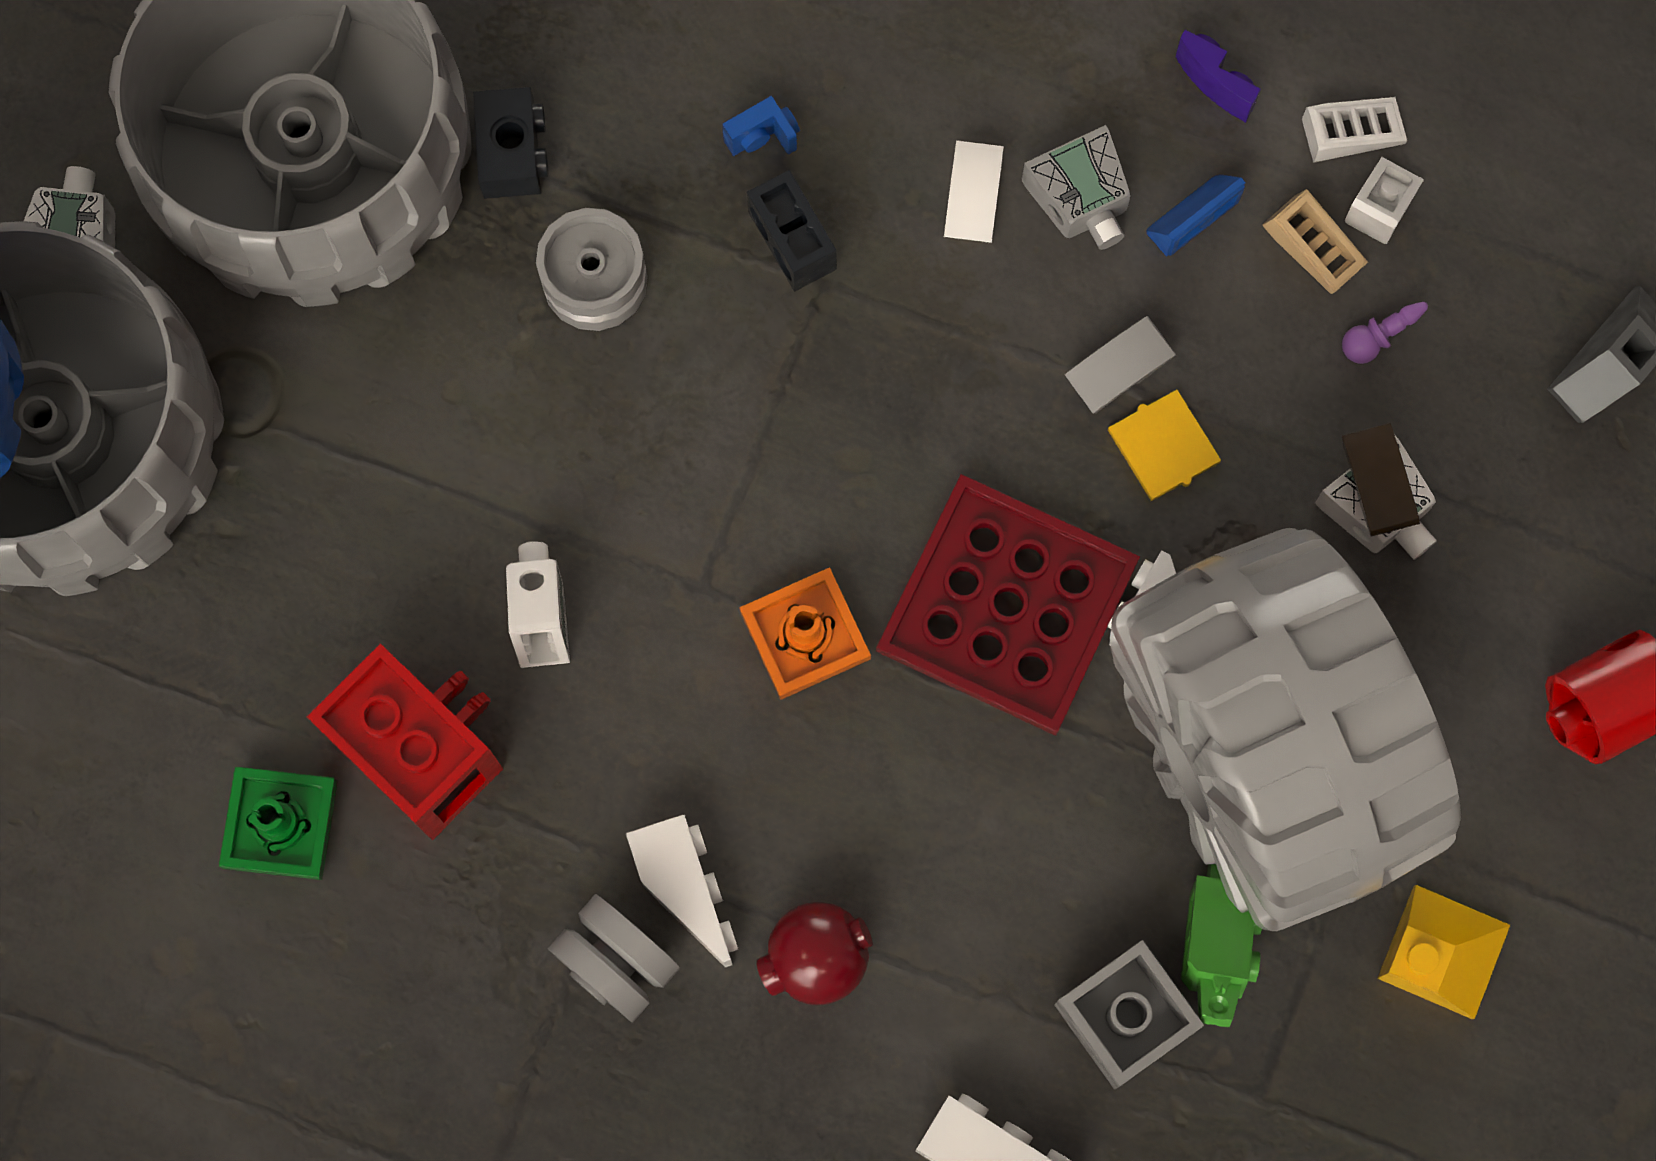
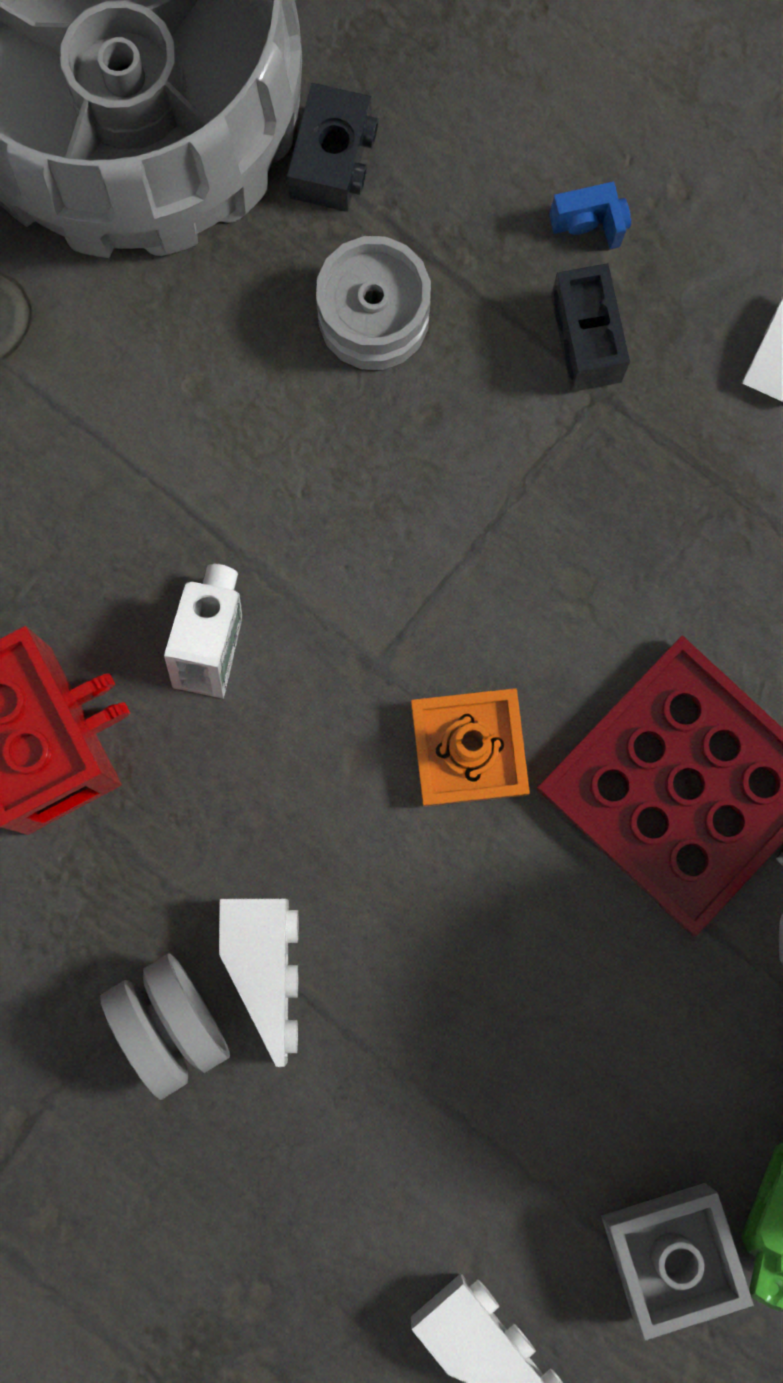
camera: 15 degrees right, 5 degrees up
(816, 954) = (374, 1086): dark red brick -> none

